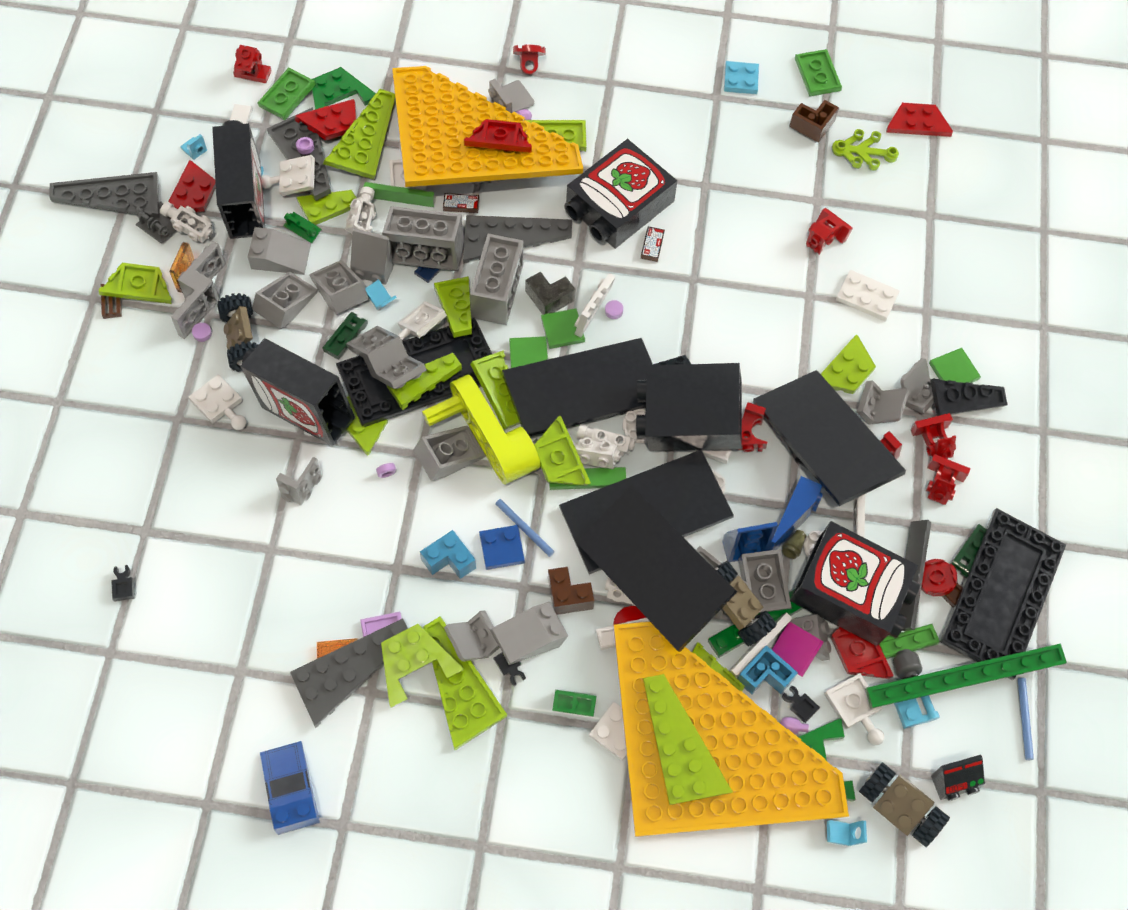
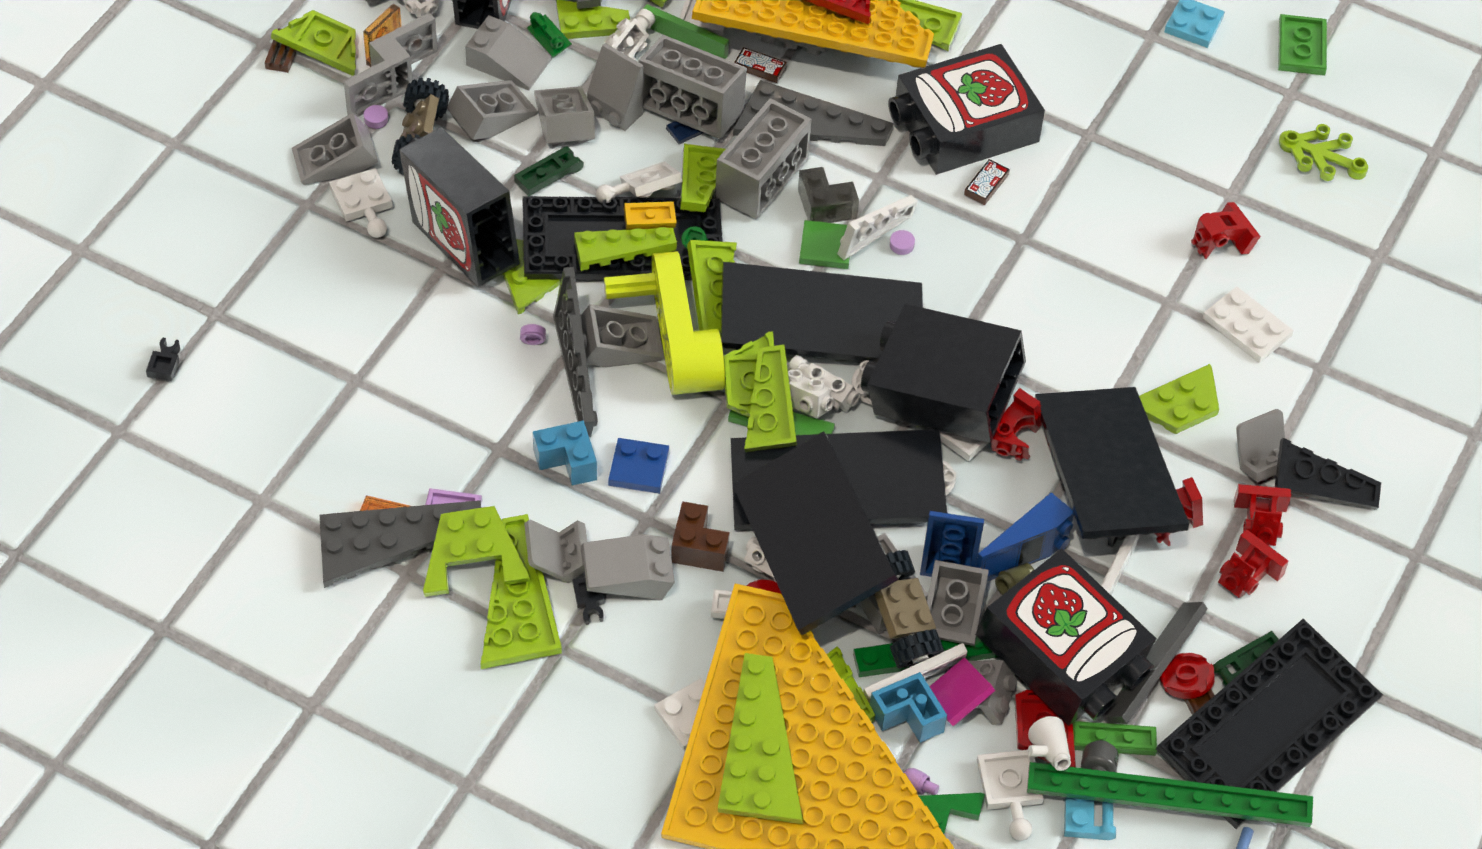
camera: 20 degrees right, 10 degrees down
(183, 371) = (335, 151): none -> light grey slope
(289, 788) = (264, 643): blue slope -> none
(300, 490) = (420, 319): light grey bracket -> none
(378, 294) = (609, 137): medium azure bracket -> none
(386, 357) = (585, 204): light grey bracket -> none
(421, 472) = (573, 346): none -> dark grey wing
(434, 348) = (649, 215): none -> yellow plate
(471, 355) = (693, 233): none -> green tile
(524, 527) = (677, 453): medium blue bar -> none
(527, 350) = (771, 253): bright green tile -> none
(574, 703) = (651, 661): green hinge -> none
(581, 474) = (771, 410): none -> lime wing
(802, 706) = (939, 763): black plate -> none
(814, 122) = (1268, 100): reddish brown brick -> none
(876, 668) = (1050, 742): none -> white piece
(881, 406) = (1199, 453): light grey bracket -> none
(919, 120) = (1415, 138): red wing -> none
(955, 367) = (1328, 441): bright green tile -> none

